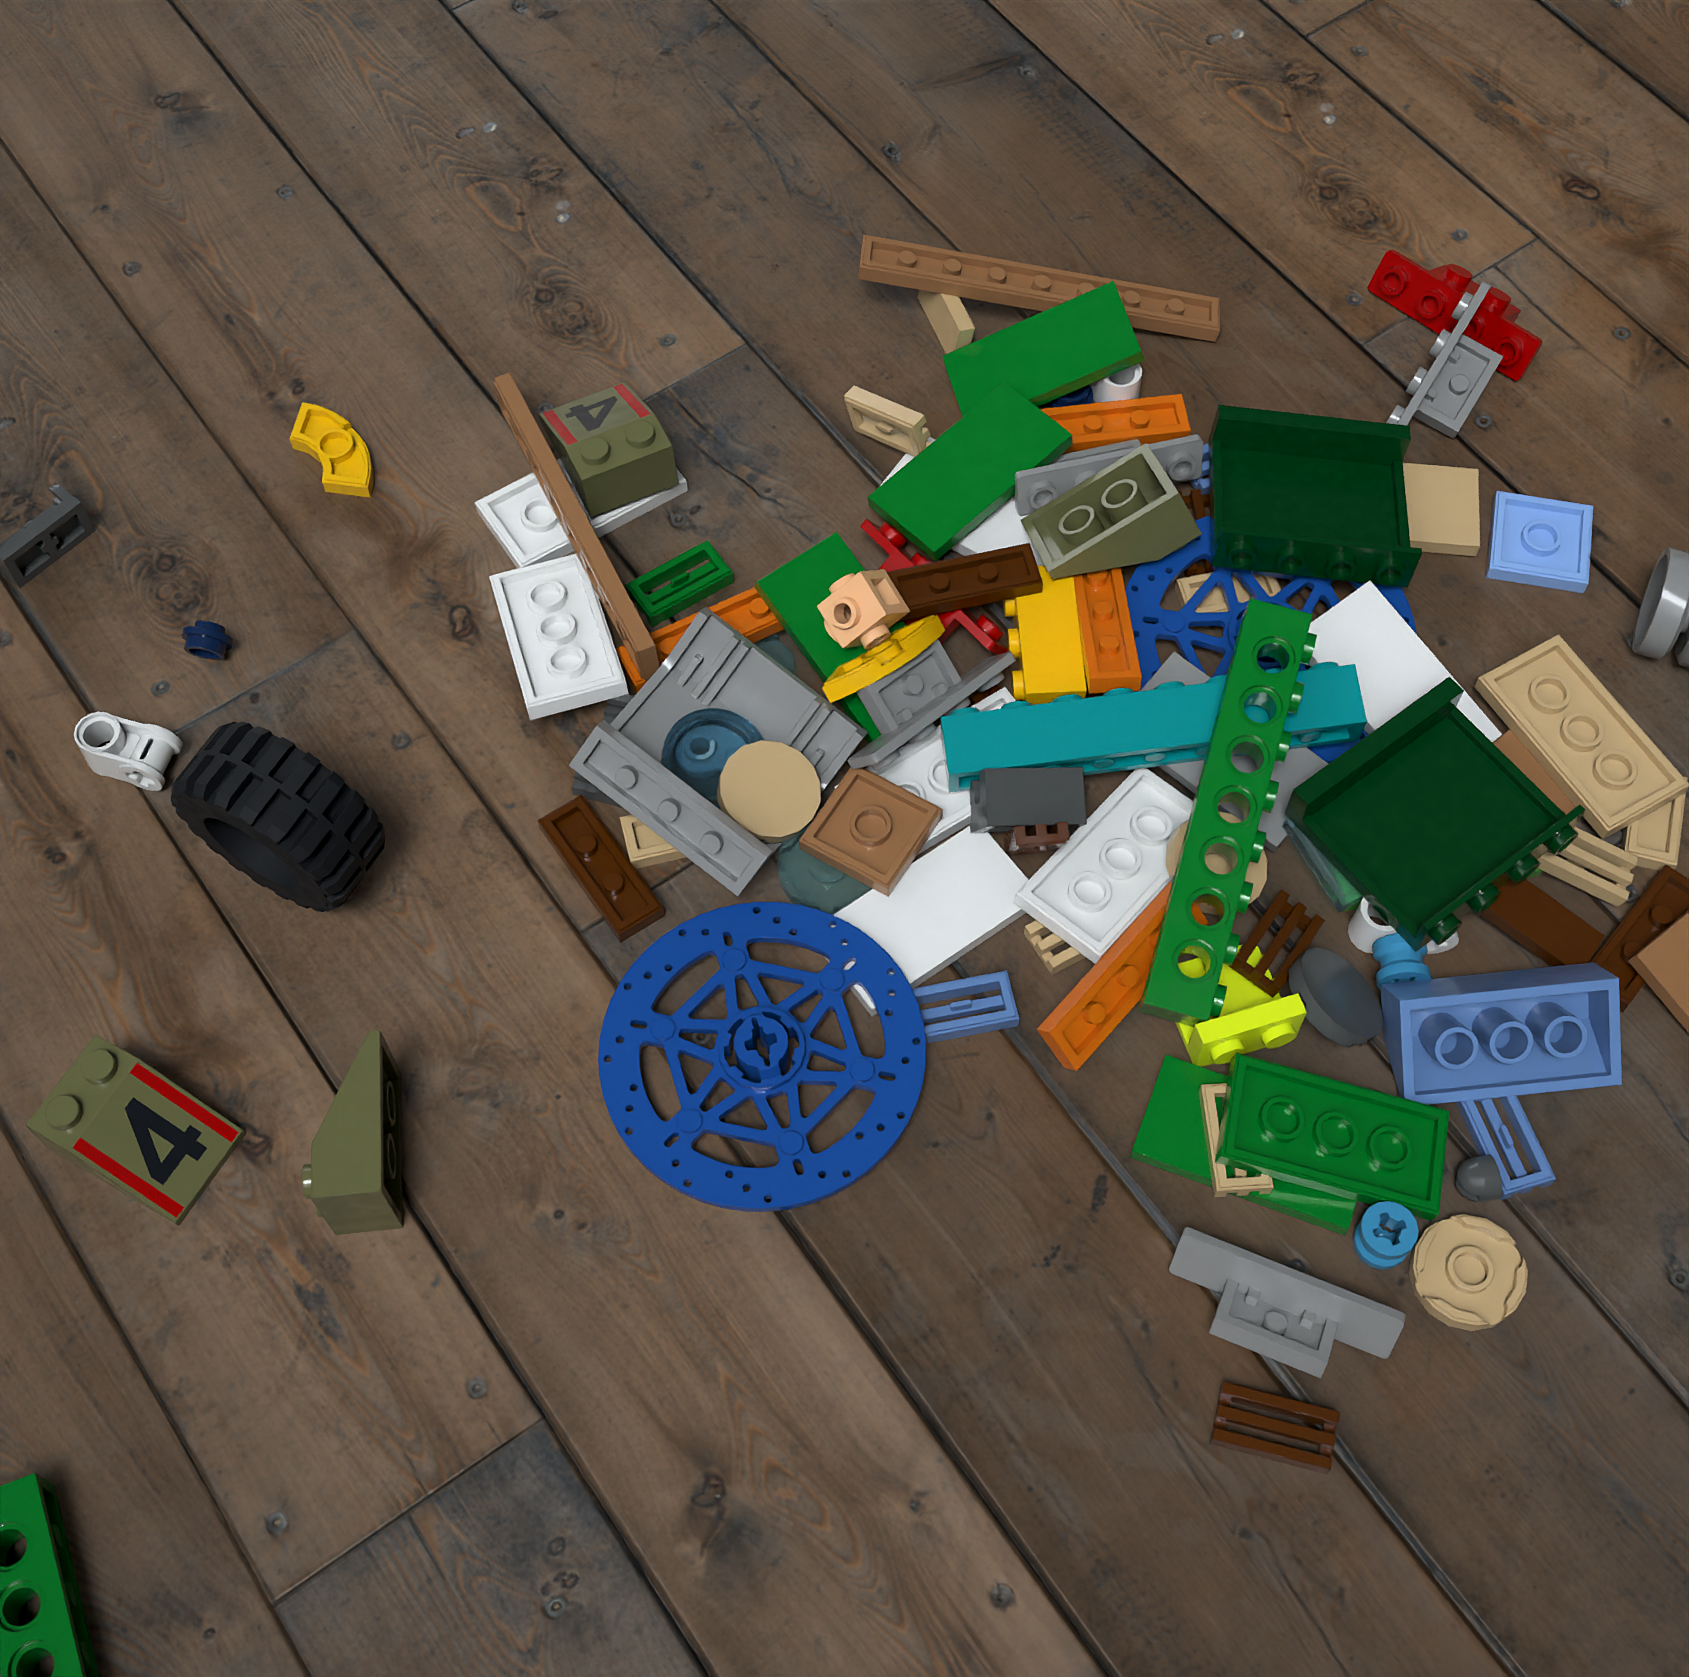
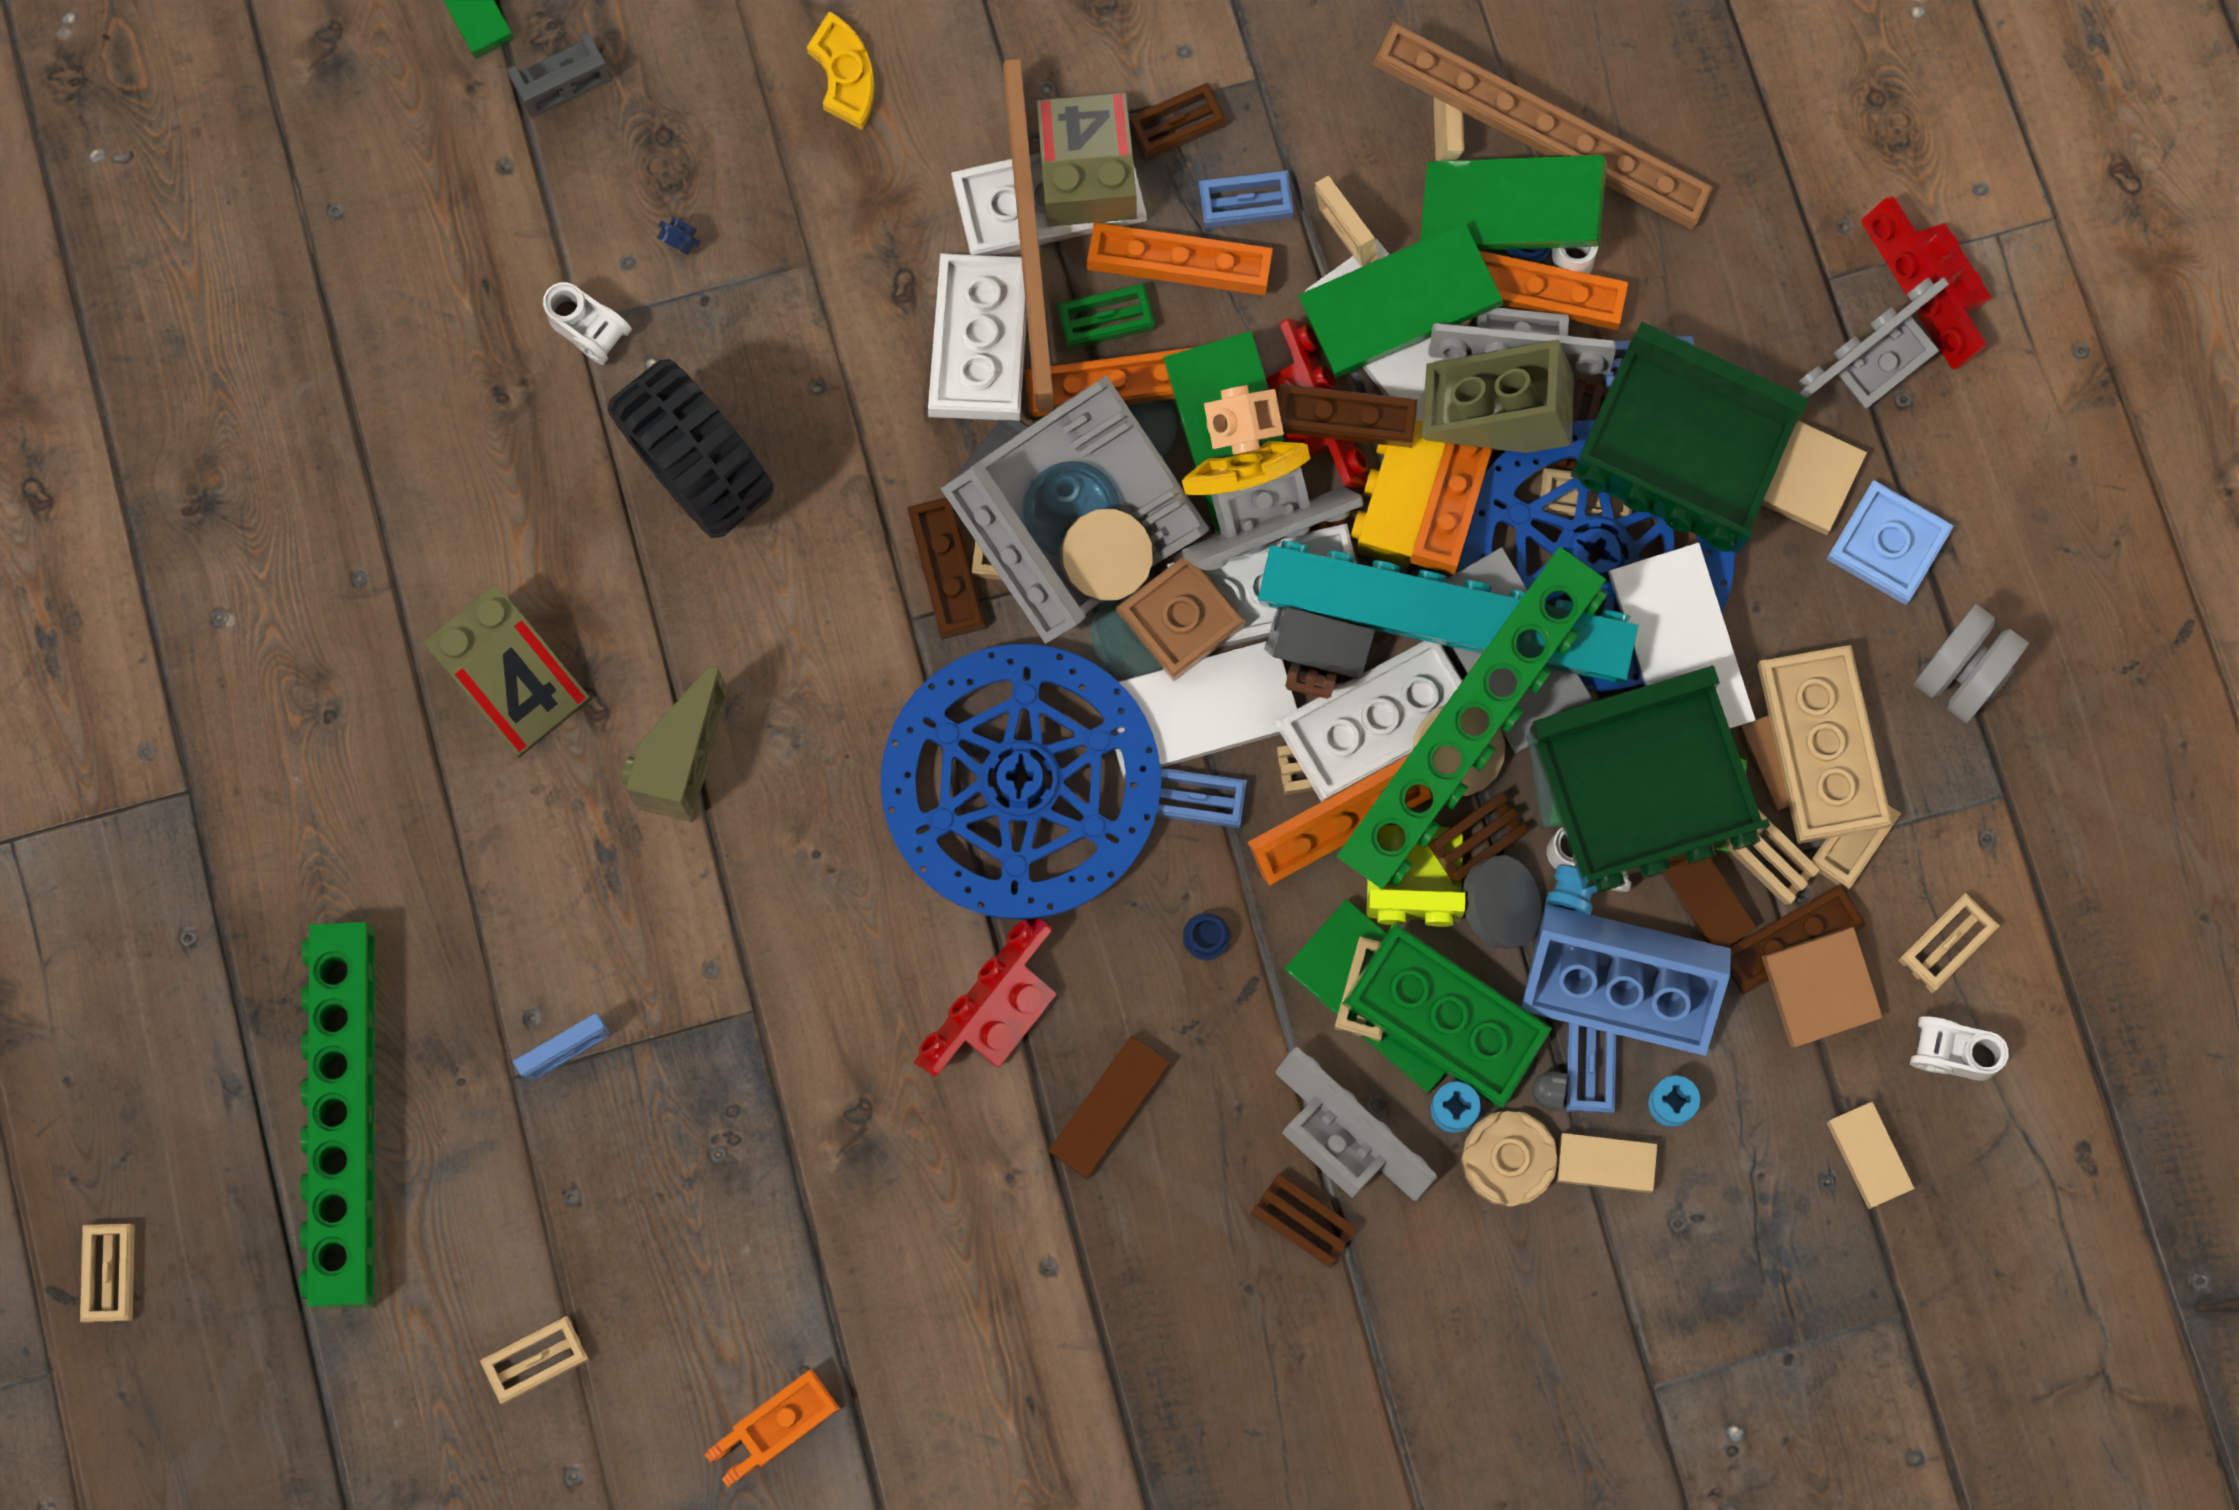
camera: 20 degrees right, 15 degrees up
(323, 1543) = (562, 1048): none -> medium blue tile
(689, 400) = (1181, 137): none -> reddish brown tile
(735, 506) = (1179, 259): none -> orange plate
(782, 446) = (1249, 215): none -> medium blue tile
(827, 1309) = (996, 1008): none -> red bracket
(998, 1379) = (1109, 1107): none -> reddish brown tile
(1031, 1148) = (1206, 936): none -> dark blue plate
(1575, 1238) = (1606, 1163): none -> tan tile
(1613, 1157) = (1665, 1110): none -> dark azure wheel

